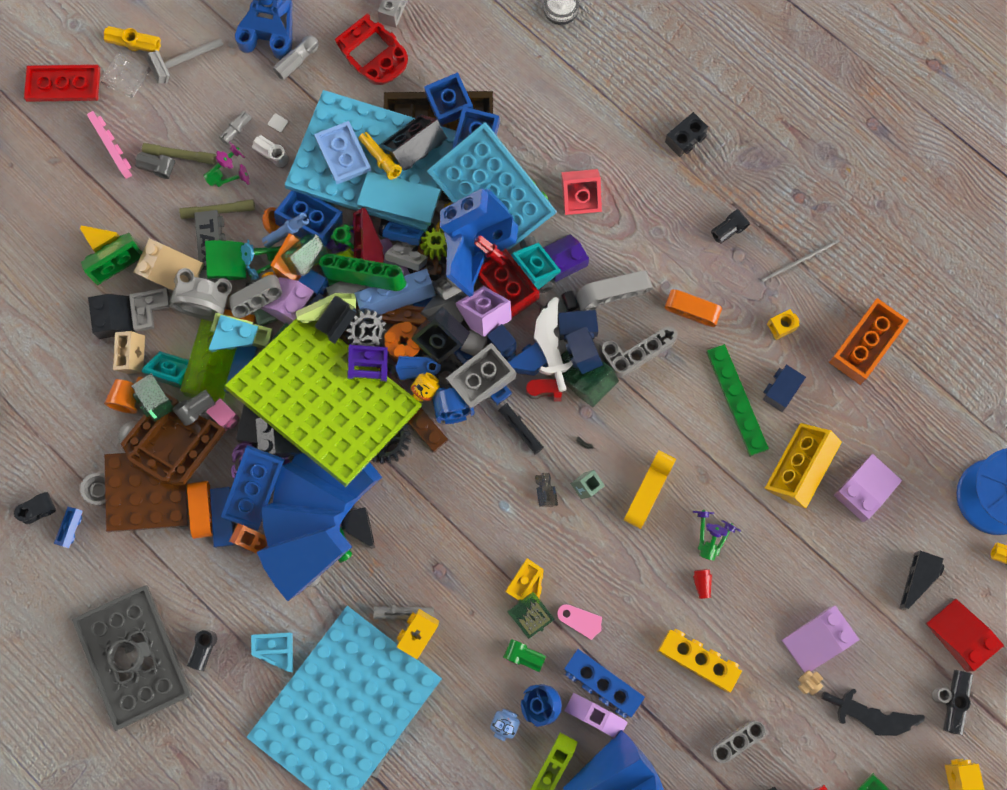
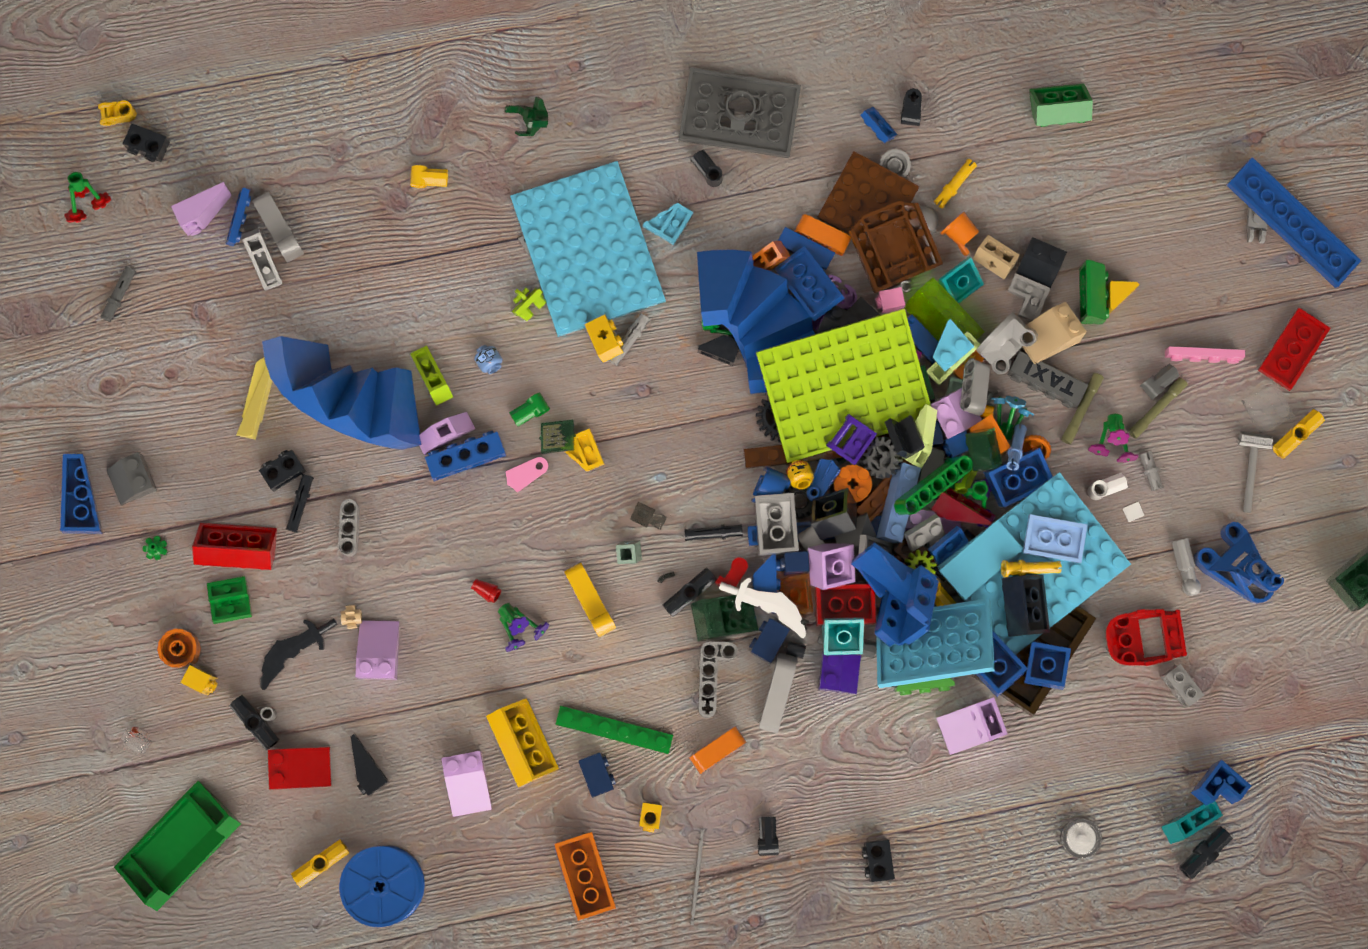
camera: 115 degrees right, 5 degrees up
(91, 429) = (950, 189): none -> yellow pin
(152, 397) = (940, 250): clear green brick -> none
(189, 410) = (909, 274): dark grey piece -> none
(225, 260) = (1027, 383): green slope -> none
(429, 729) = (522, 308): none -> lime hips
(490, 250) = (879, 604): red axle -> none
(523, 326) = (798, 591): none -> clear orange slope
(533, 131) = (972, 726): none -> lavender slope
(541, 705) = (482, 395): blue cylinder -> none
(571, 411) = (680, 600): none -> black piece
(581, 191) = (888, 729): coral slope -> none
(583, 350) = (741, 625): dark blue brick -> none
(725, 681) = (400, 550): yellow brick -> none

